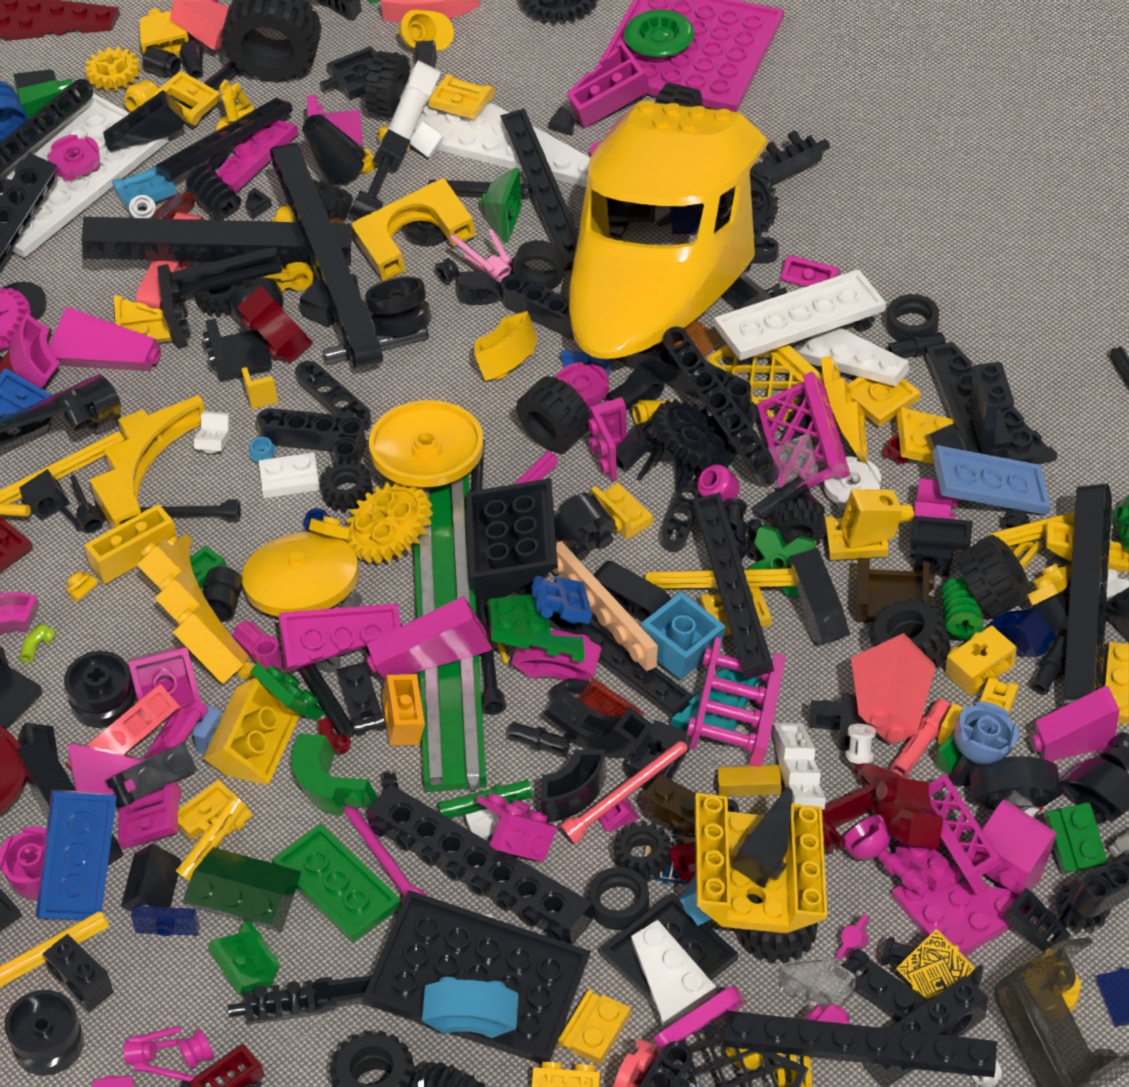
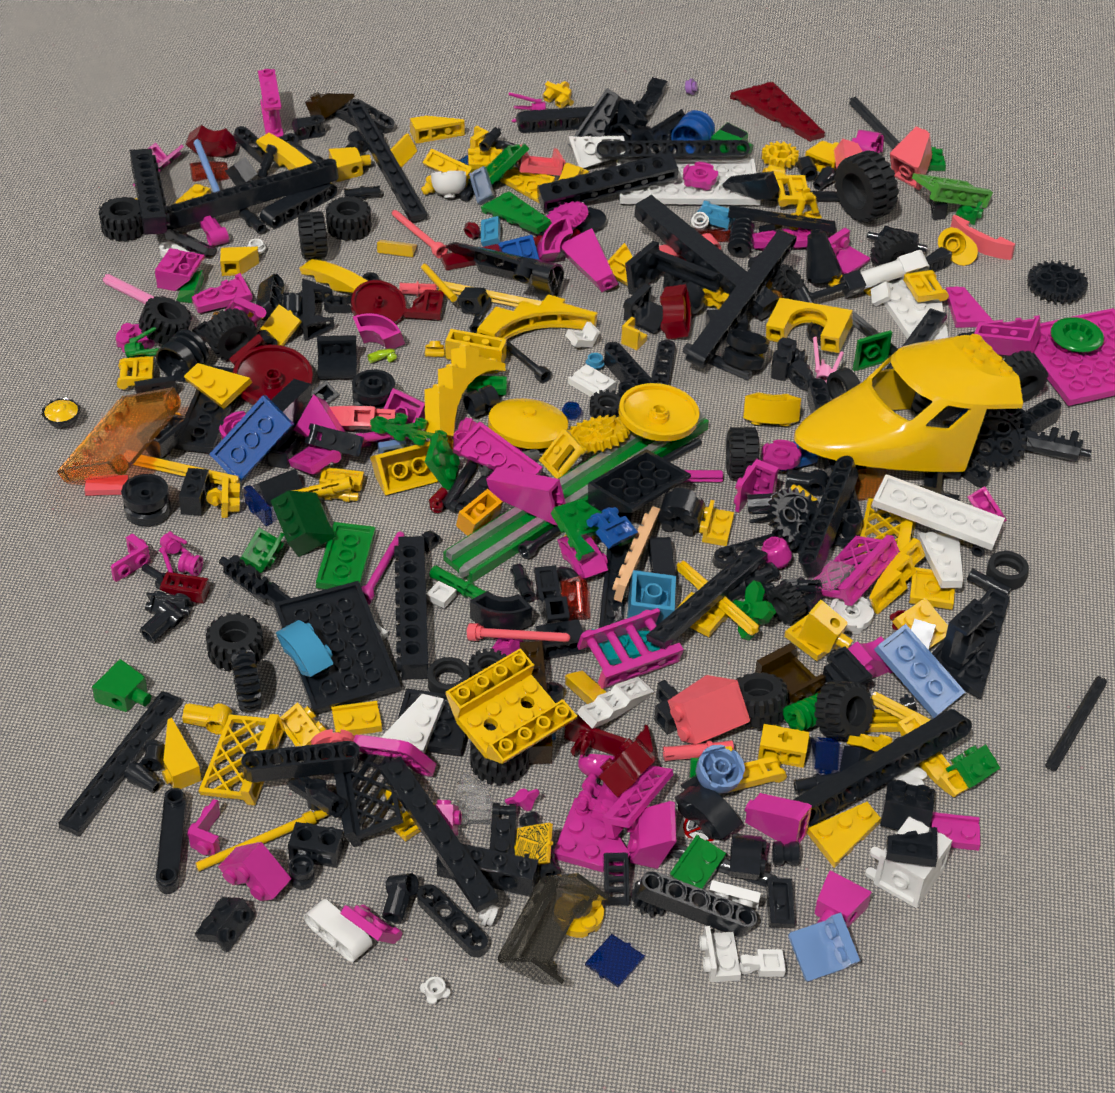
camera: 45 degrees right, 5 degrees down
(116, 950) = (217, 497): none -> yellow hips
(184, 710) = (399, 432): none -> green plant
(311, 766) = (404, 504): green arch -> none
(330, 527) = (568, 414): yellow plate -> none
(380, 574) = (559, 451): none -> yellow plate
(440, 286) = (783, 358): none -> black brick
(518, 829) = (446, 603): dark pink bracket -> none
(519, 90) = (964, 308): none -> dark pink wing
(765, 848) = (521, 704): black slope -> none
(818, 597) = (739, 638): black slope -> none
(860, 743) = (656, 718): white bush -> none

